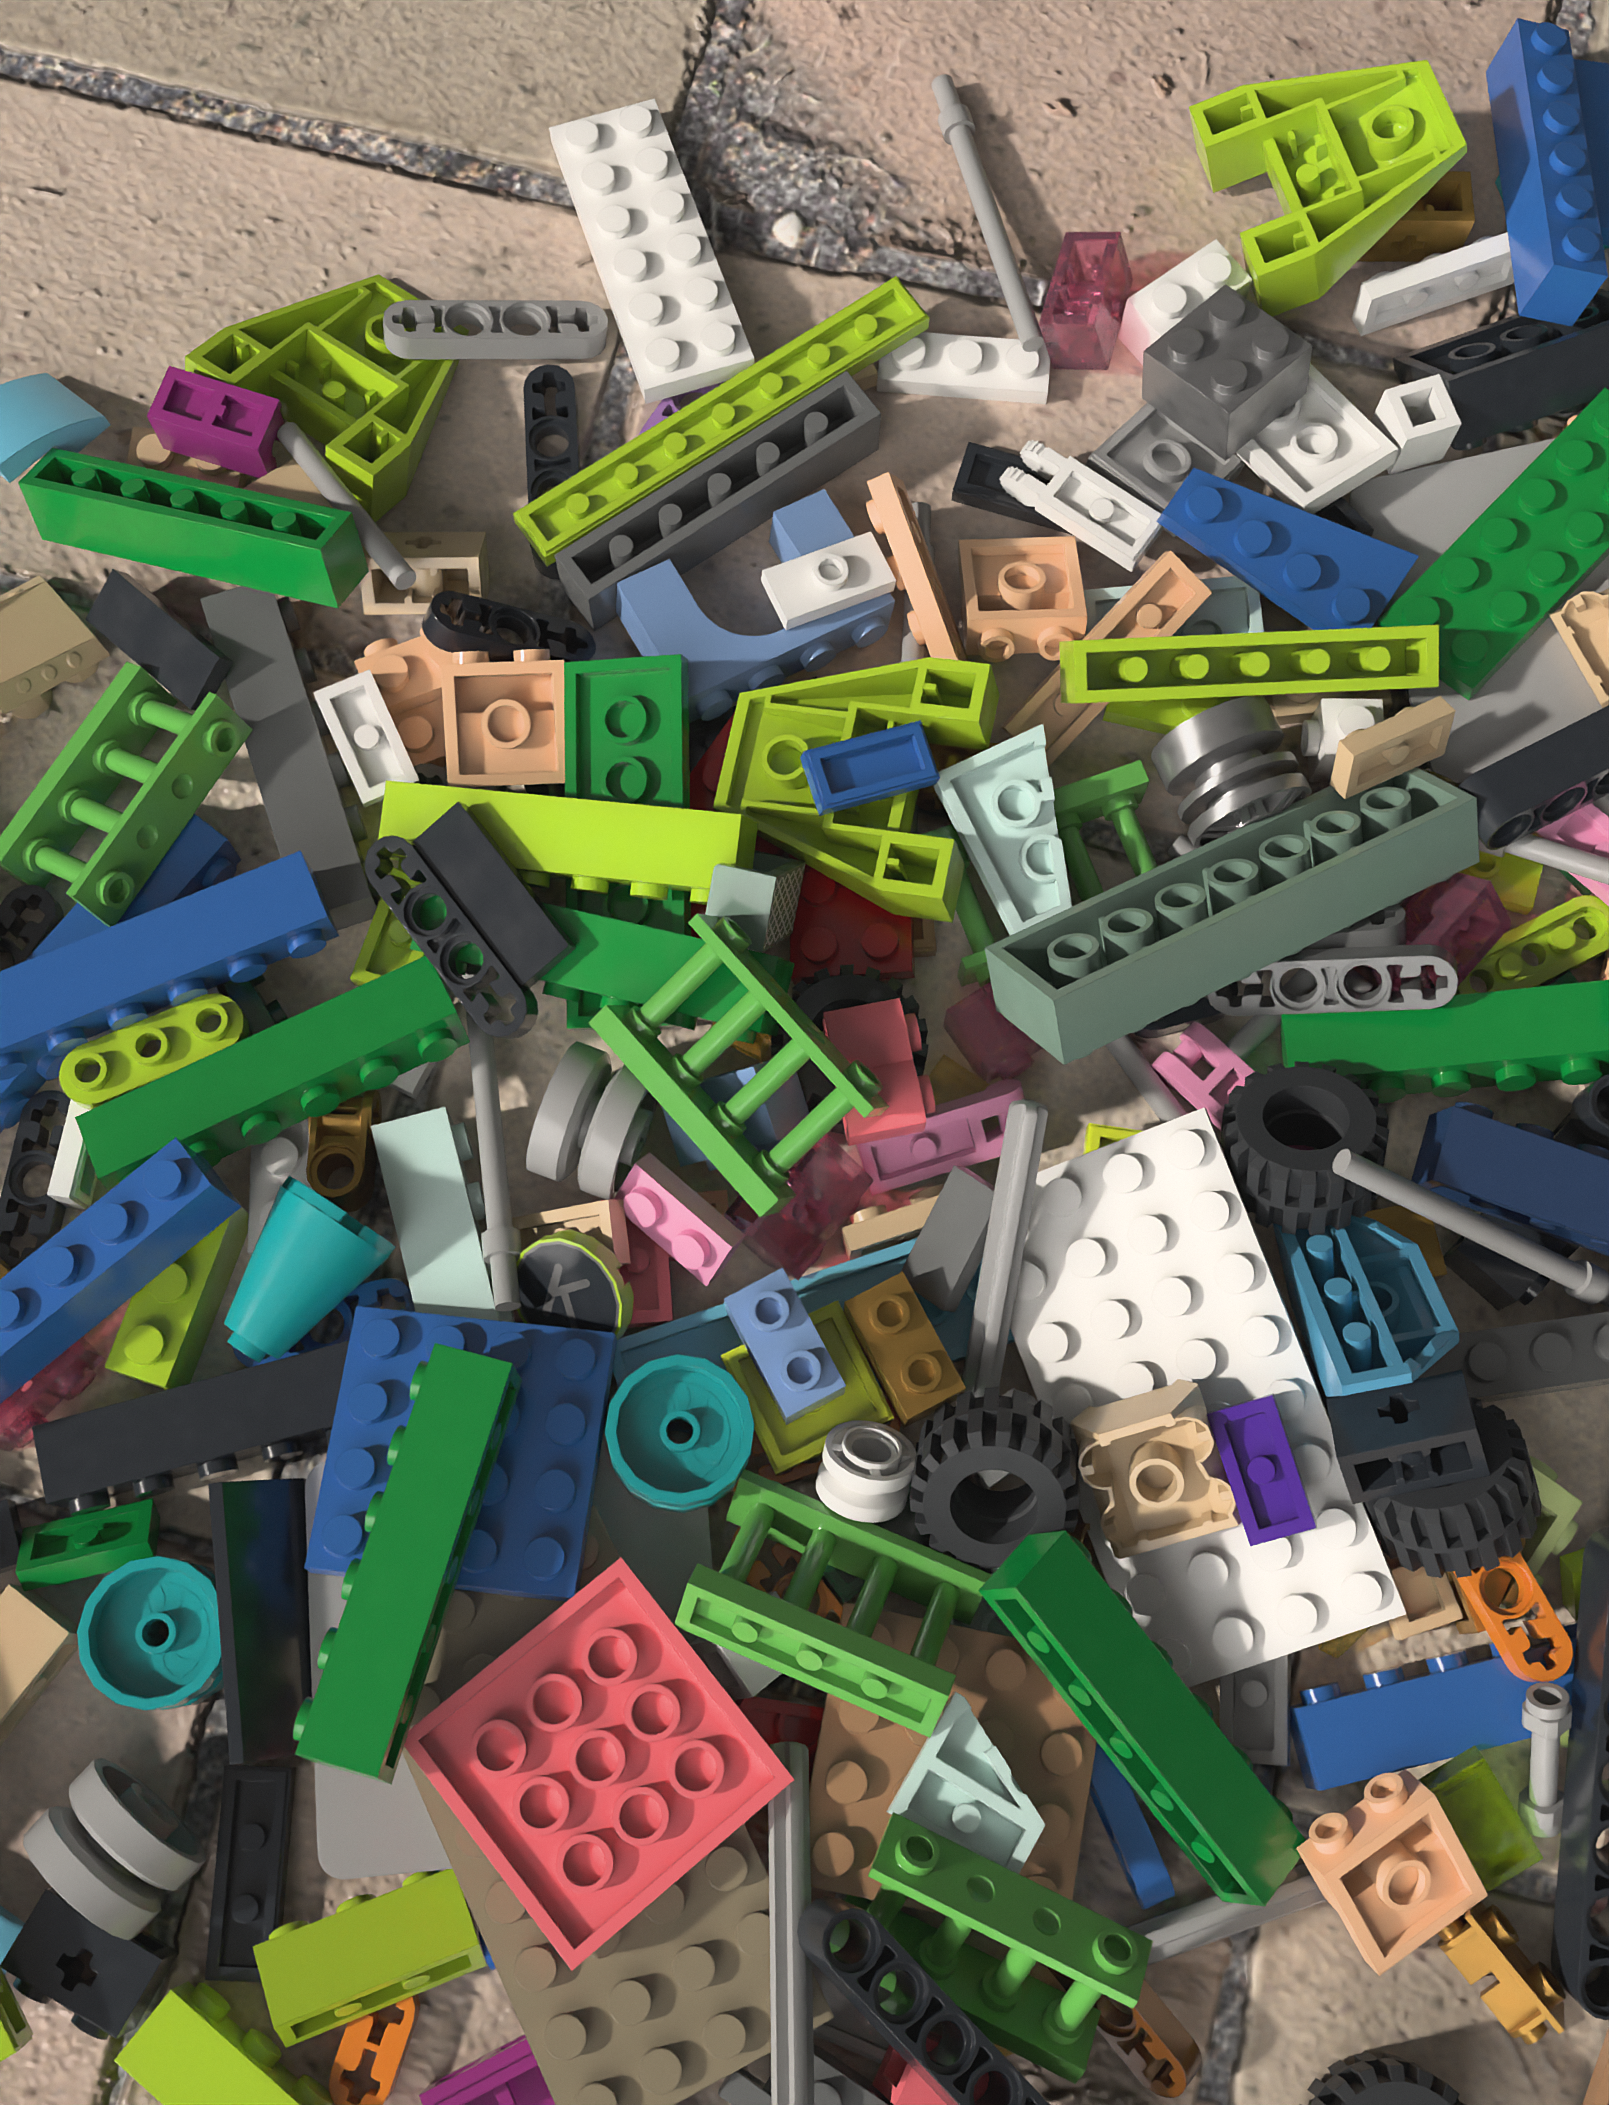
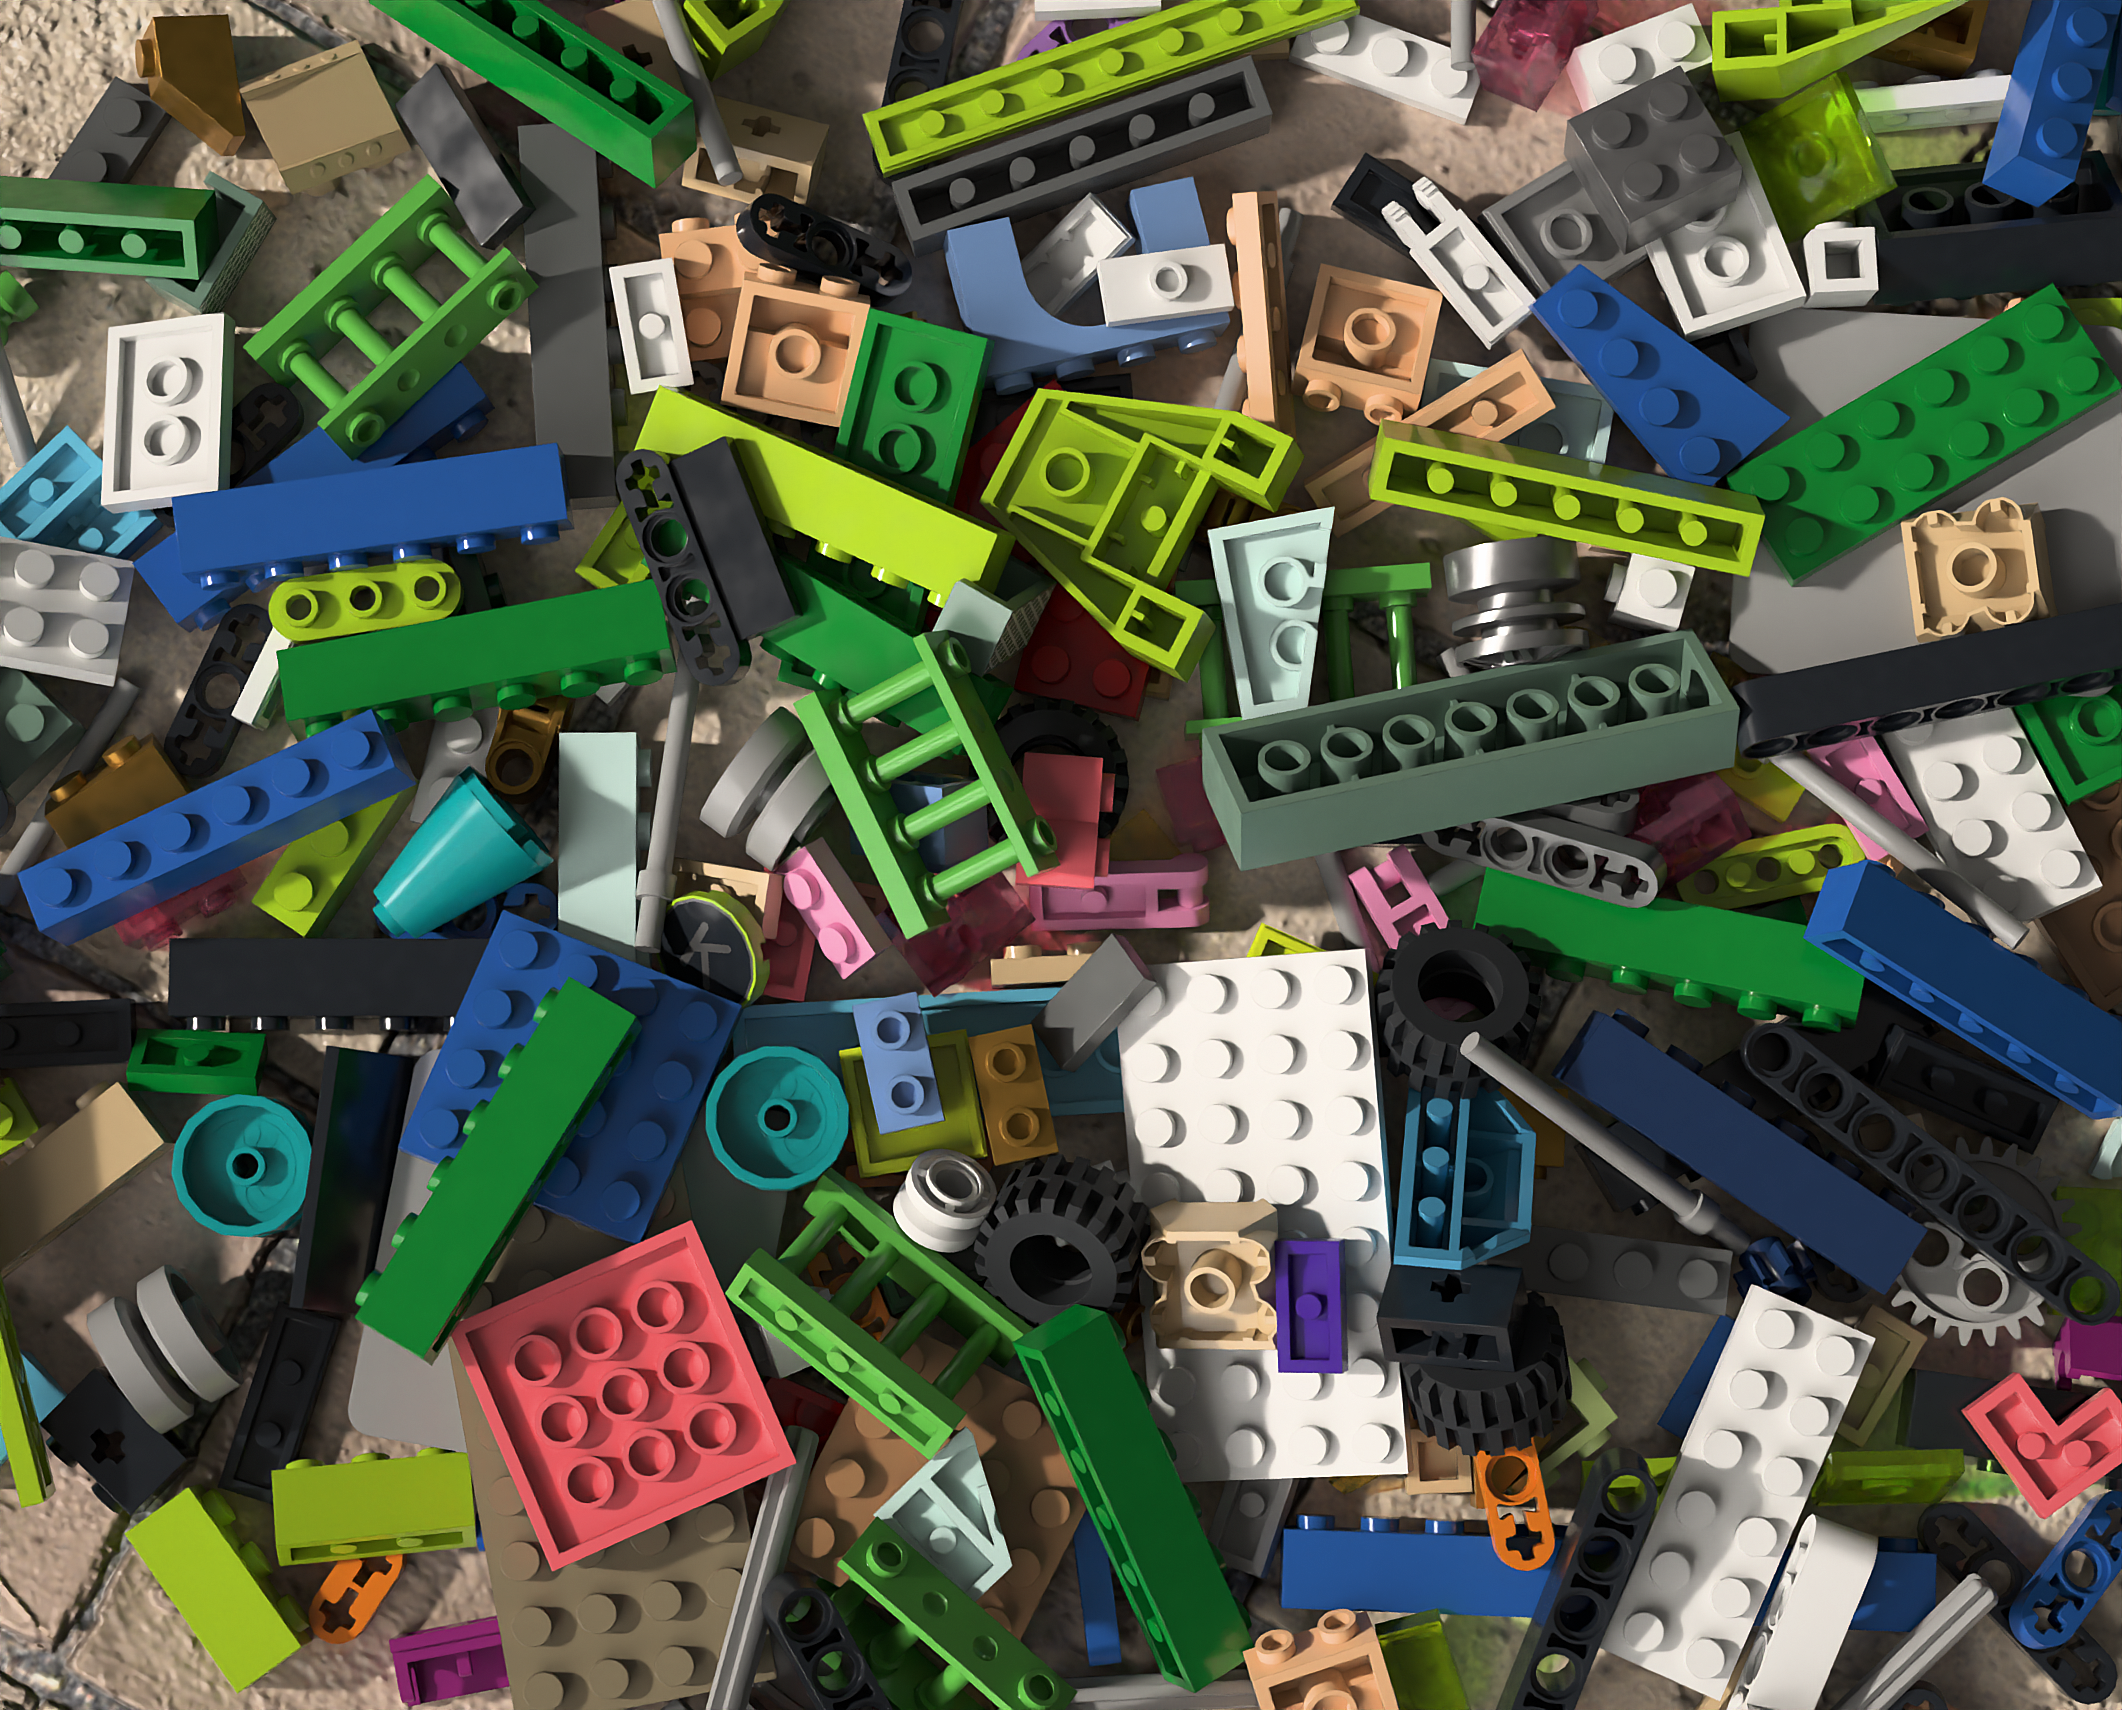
camera: 15 degrees right, 10 degrees up
(734, 586) = (1068, 256): none -> white plate
(869, 768) = (1143, 510): blue tile -> none
(1004, 1245) = (1133, 1030): light grey axle -> none
(1368, 336) = (1817, 157): none -> clear neon green tile
(1392, 746) = (1680, 627): tan plate -> none
(1547, 1716) = (1508, 1601): light grey bar -> none

